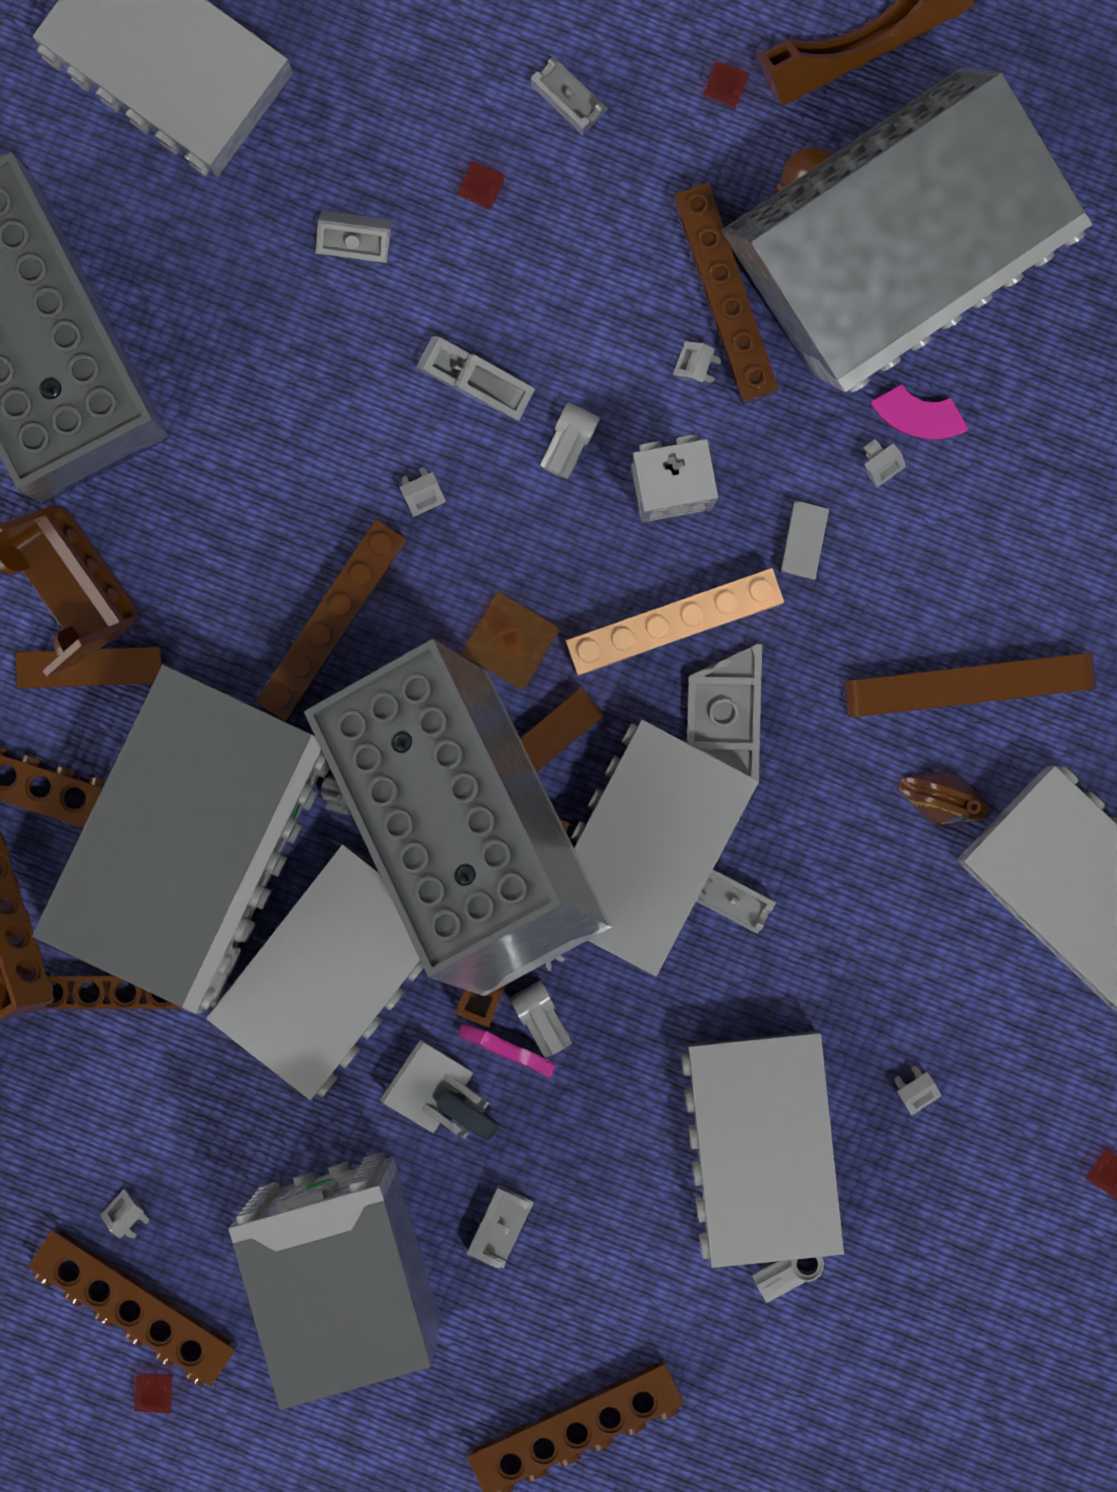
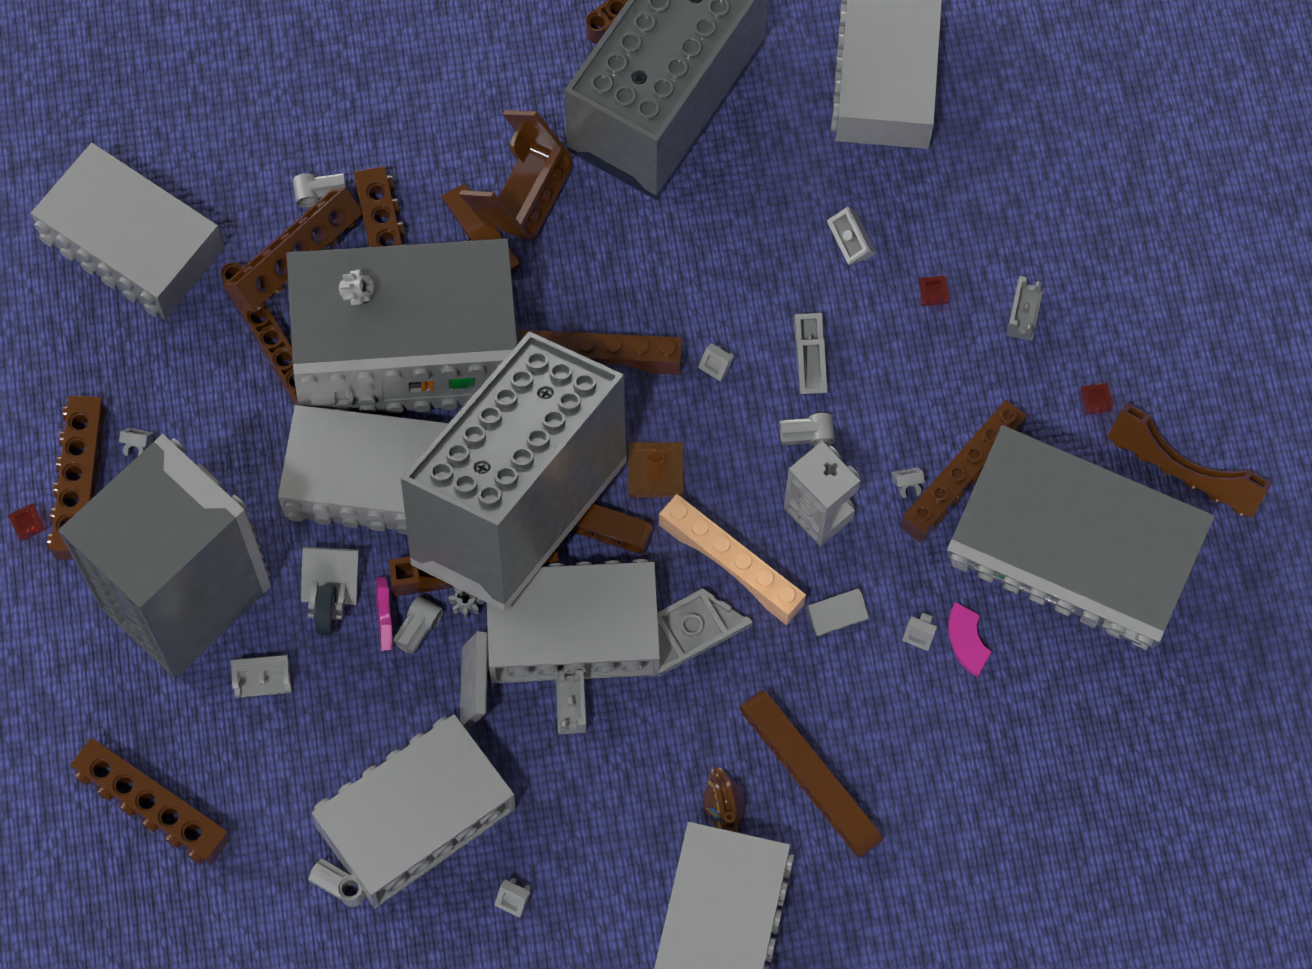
camera: 60 degrees right, 20 degrees down
(132, 882) = (356, 287): none -> light grey gear
(650, 996) = (473, 679): none -> light grey tile

